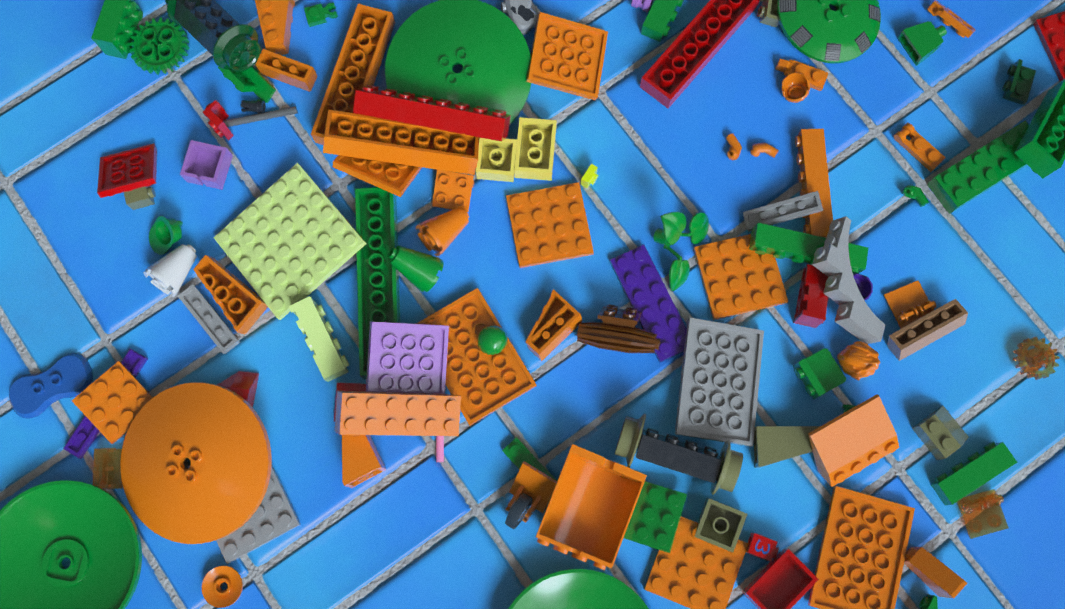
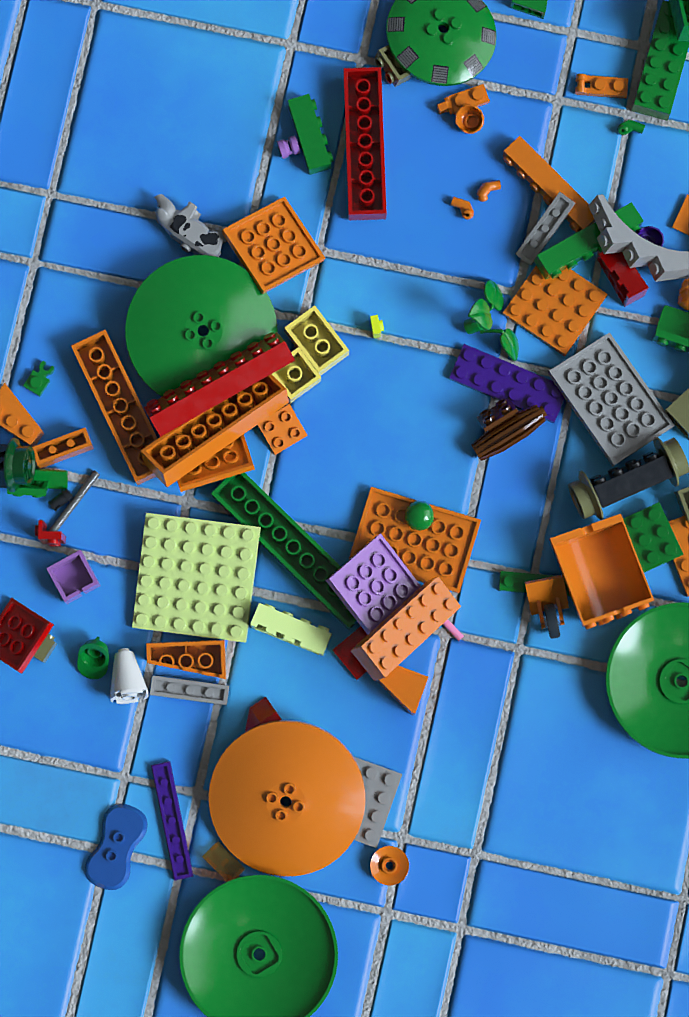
camera: 45 degrees left, 5 degrees up
(113, 401) = (180, 812): orange plate -> none
(416, 266) = (315, 510): green cone -> none
(442, 230) = (304, 466): orange cone -> none
(549, 225) = (379, 390): orange plate -> none
(553, 326) = (454, 465): orange wedge -> none

